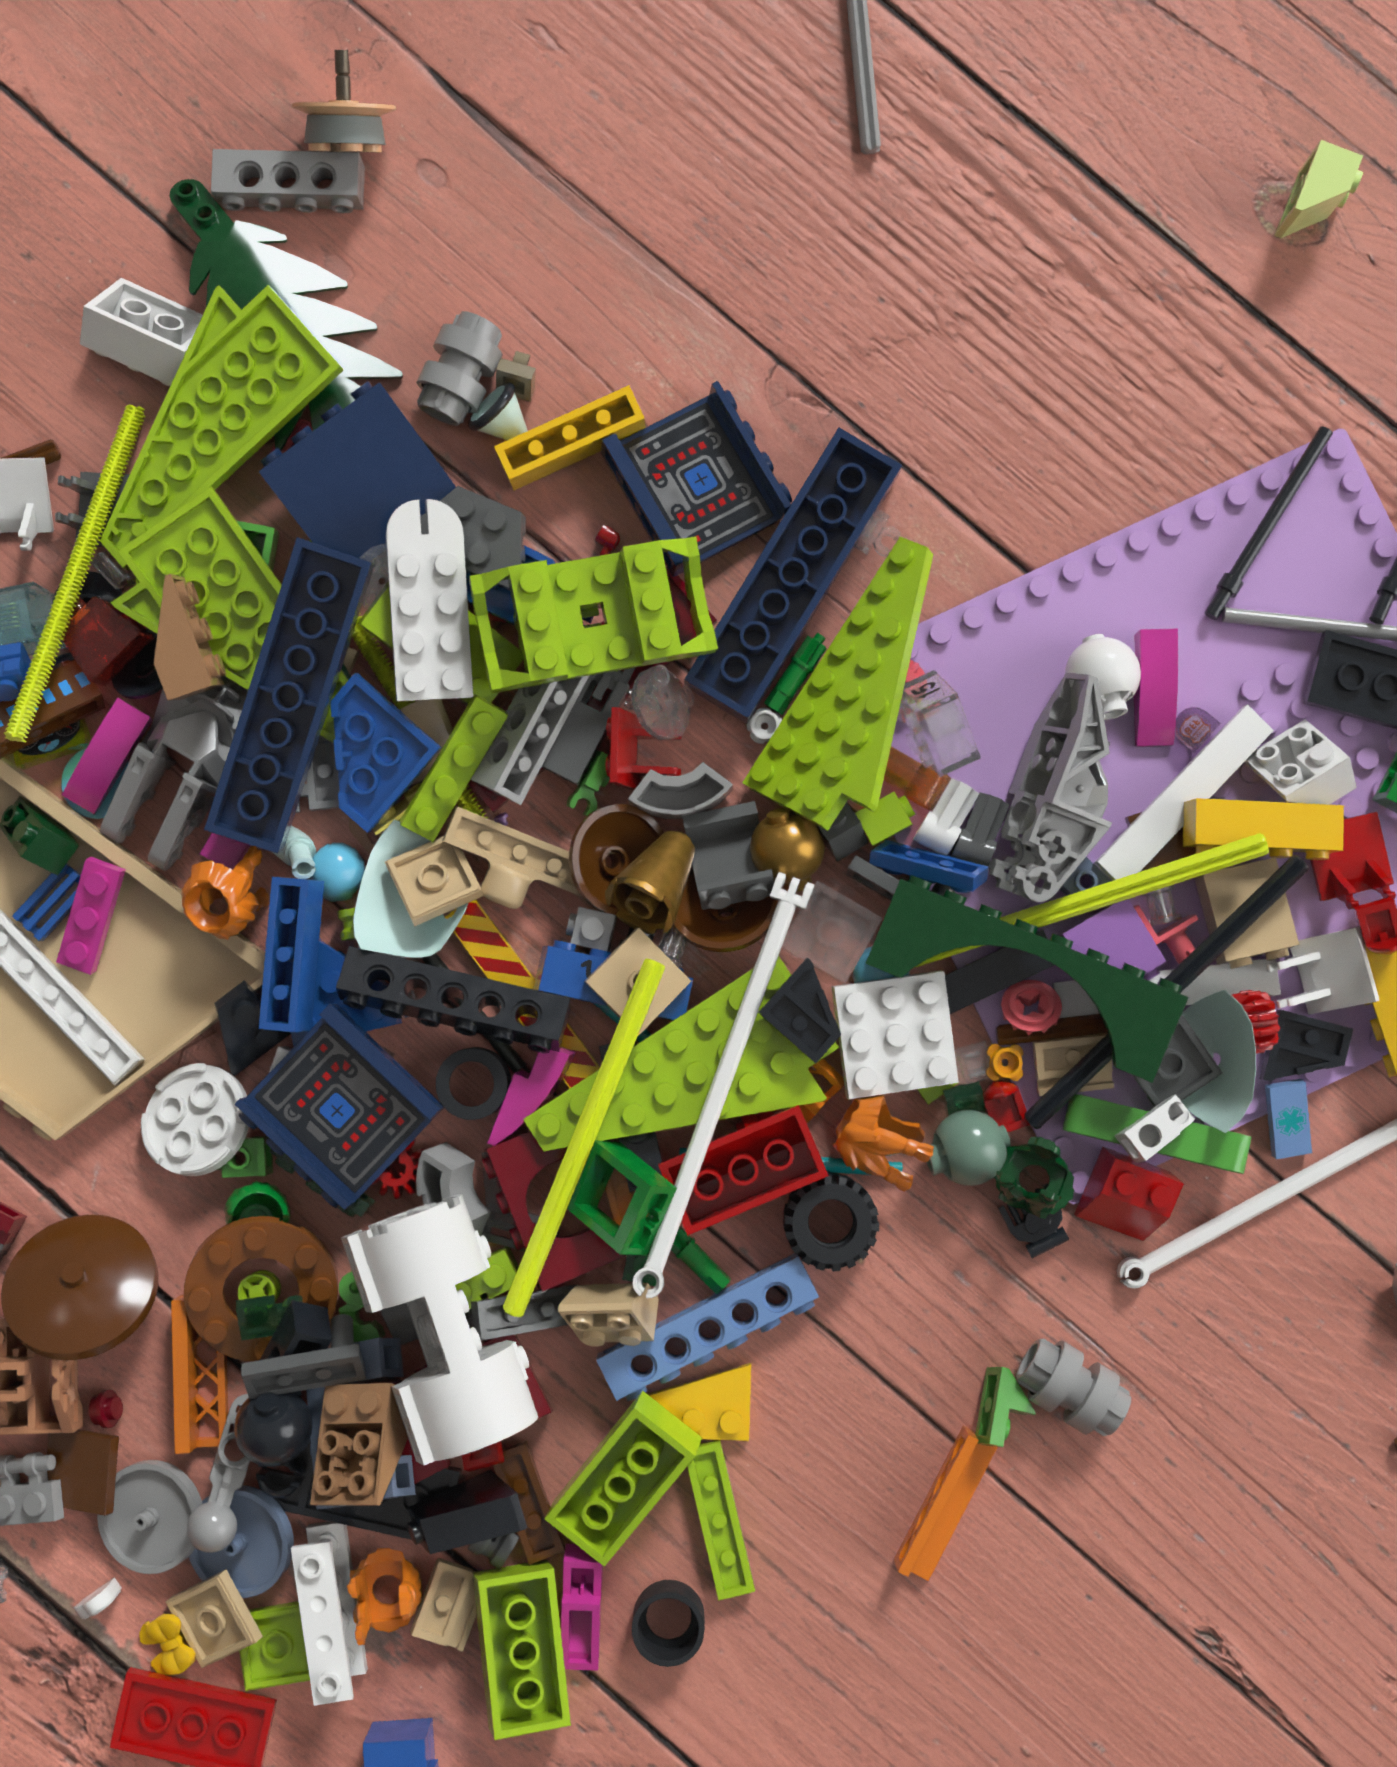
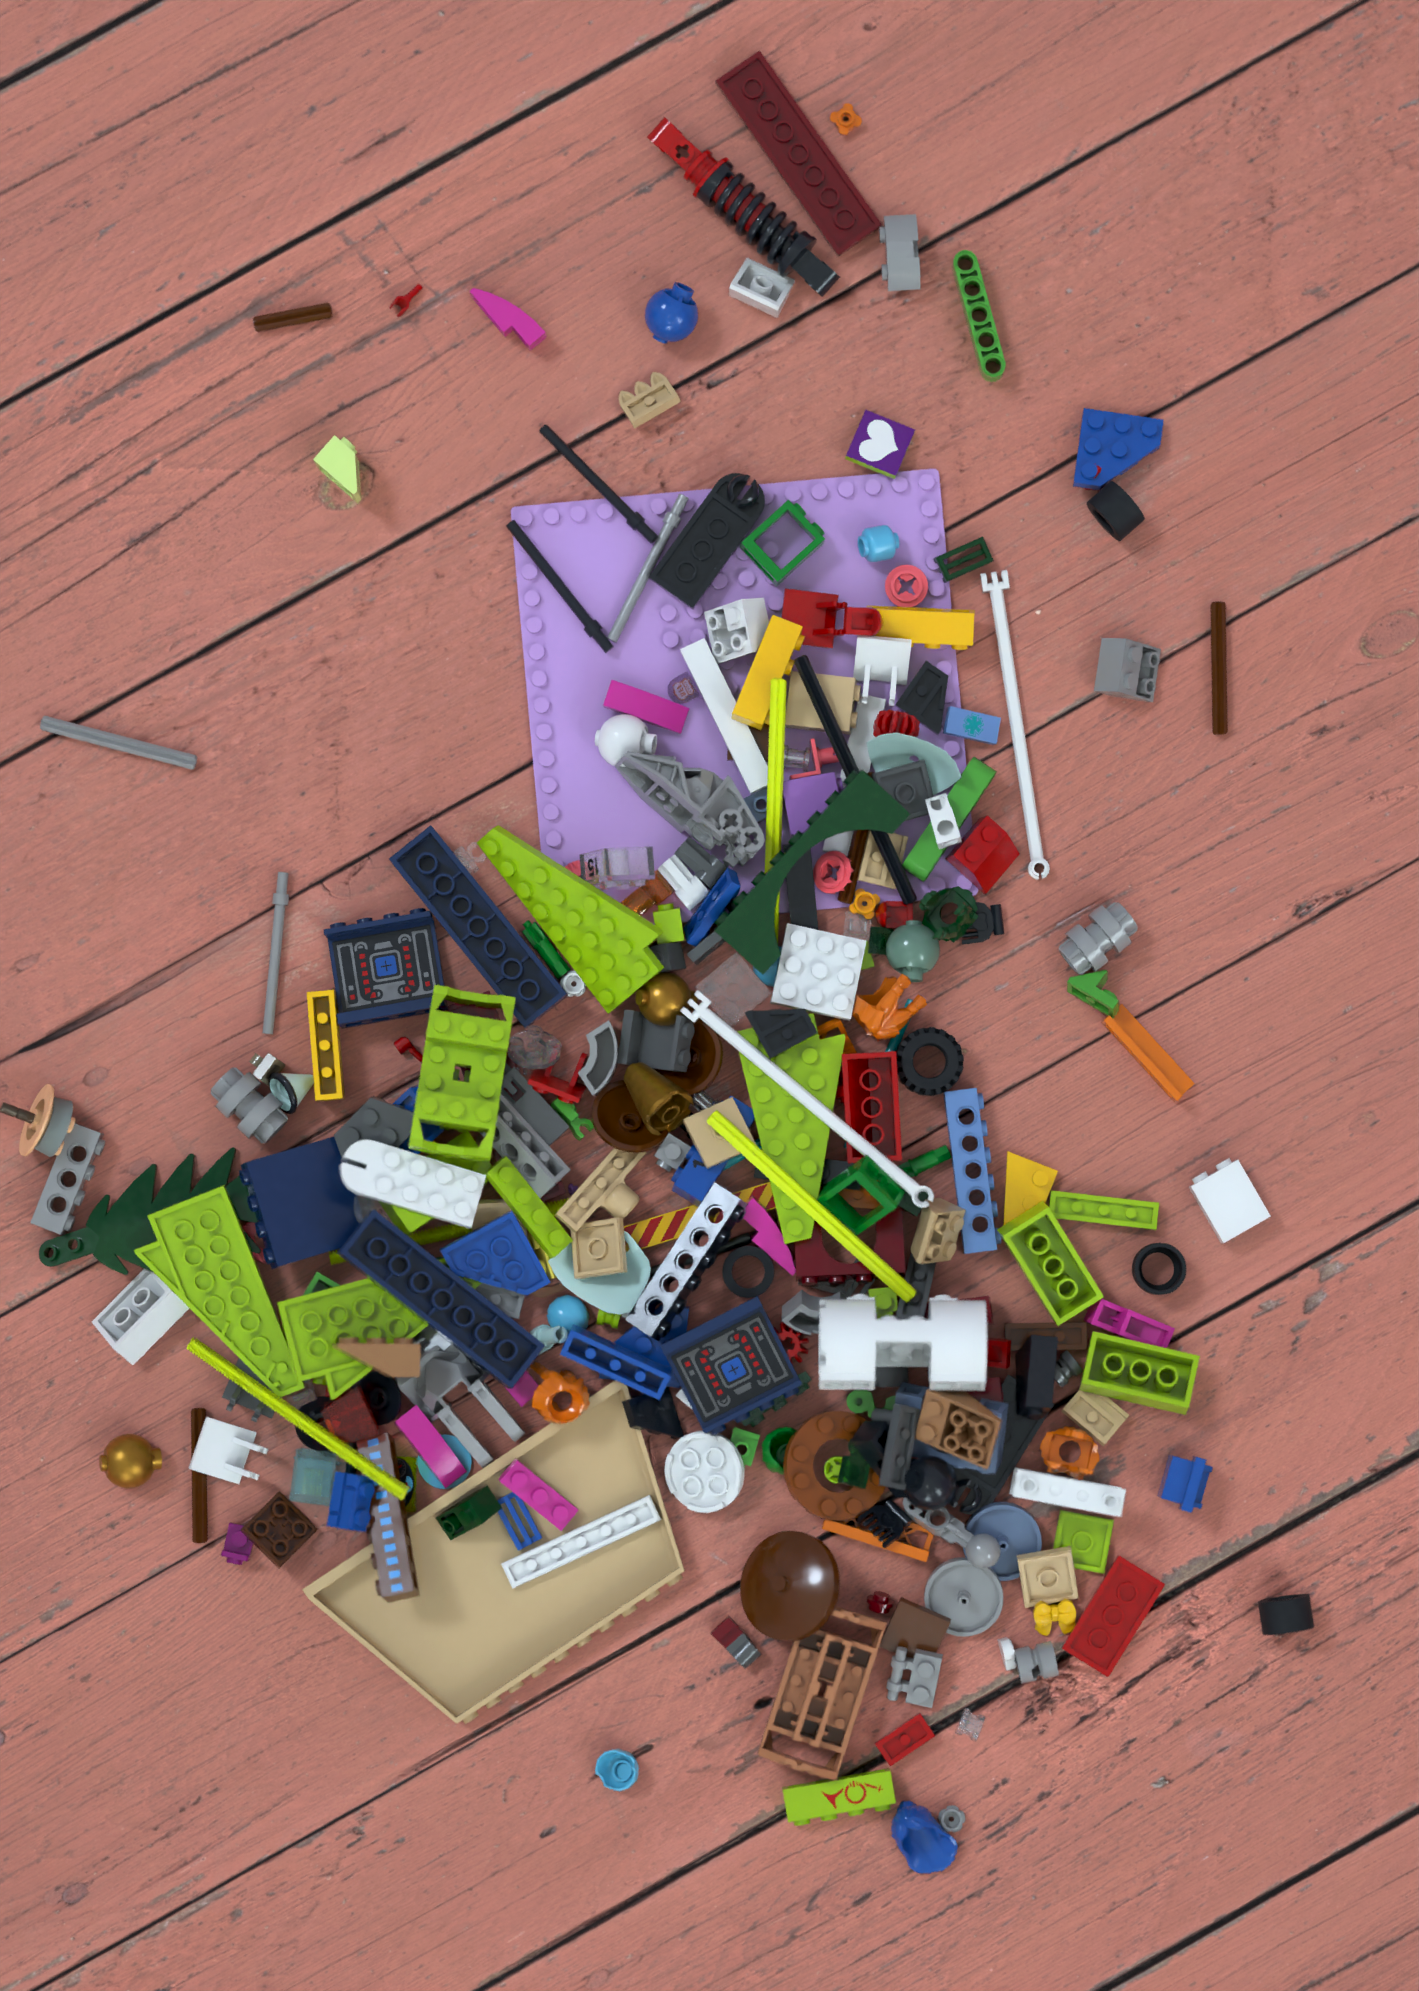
camera: 70 degrees left, 0 degrees up
(96, 1645) = (1036, 1662): none -> light grey wheel
(216, 1384) = (889, 1519): none -> black piece
(736, 318) = (280, 900): none -> light grey bar
(791, 1683) = (1228, 1200): none -> white brick

